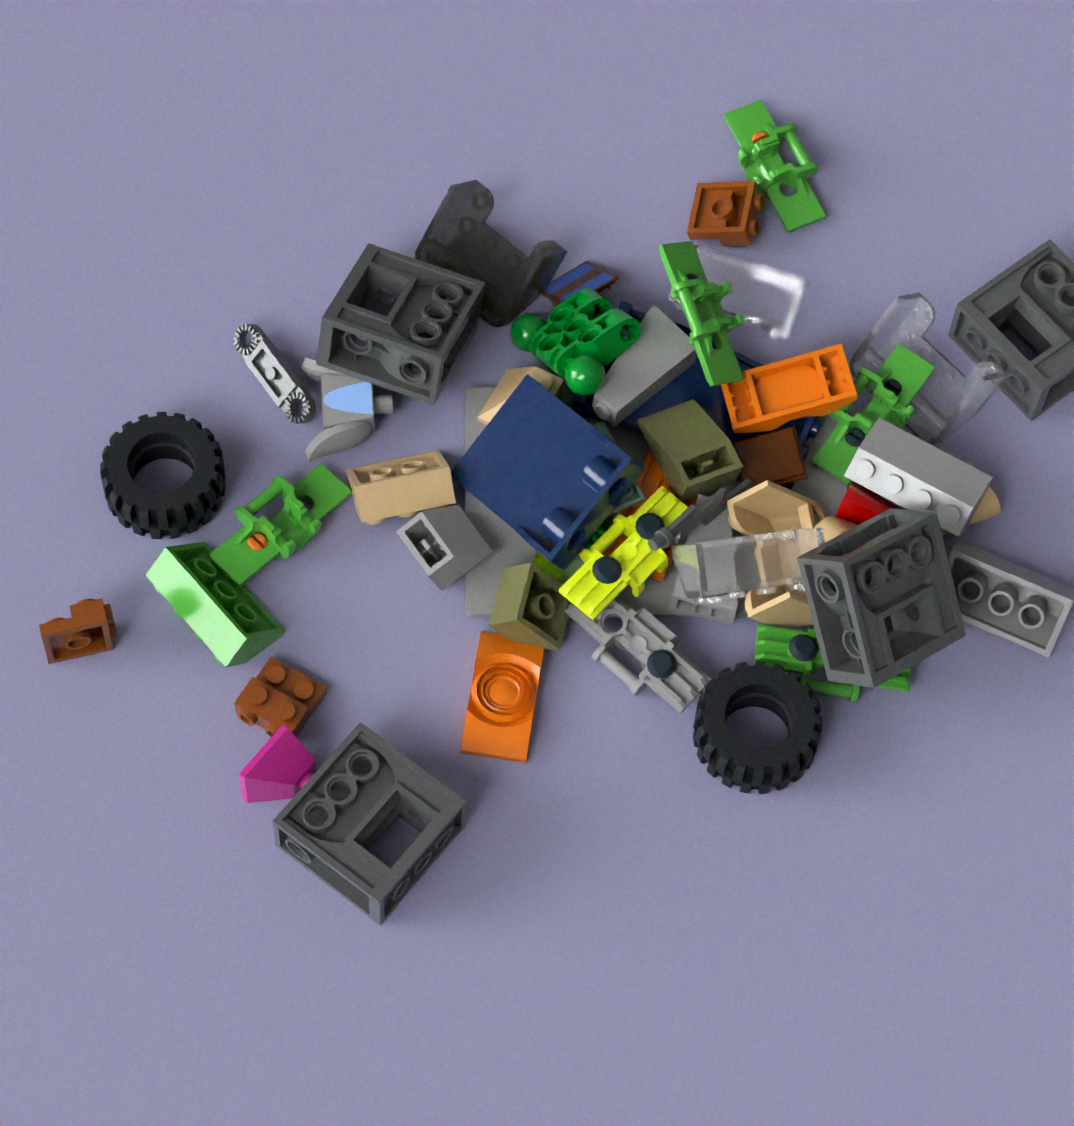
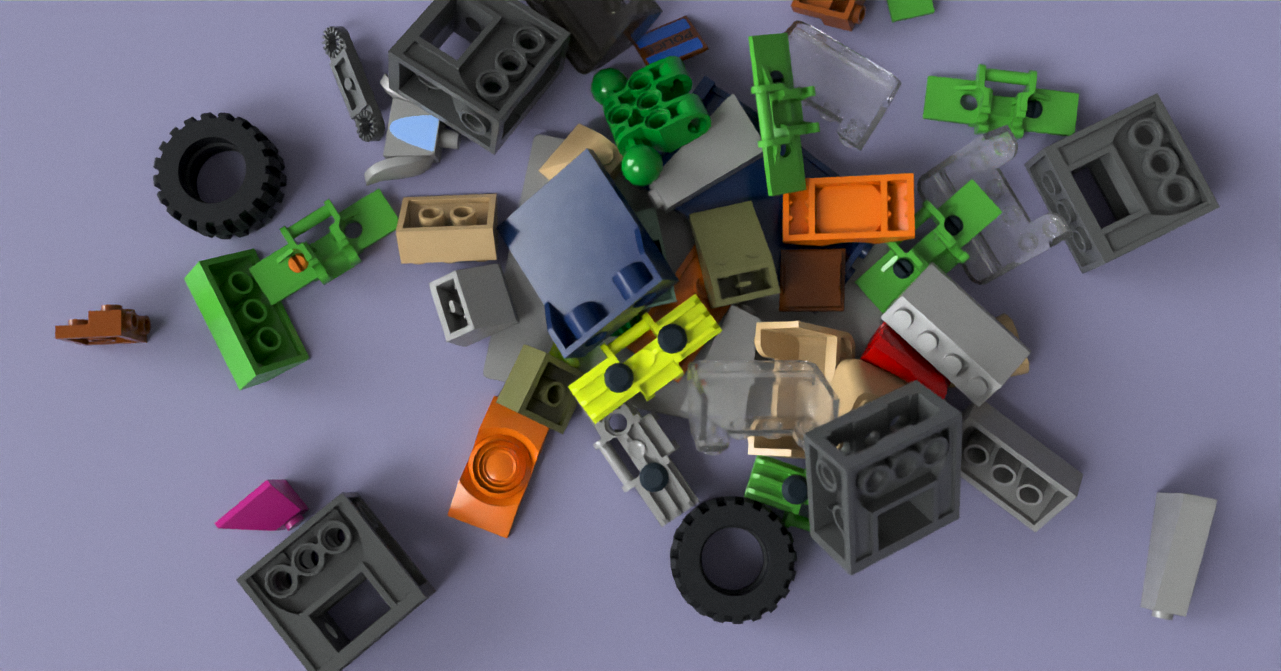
camera: 15 degrees right, 20 degrees up
(279, 698) = (287, 431): dark orange plate -> none
(692, 518) = (715, 338): dark grey piece -> none
(937, 283) = (1029, 111): none -> bright green piece

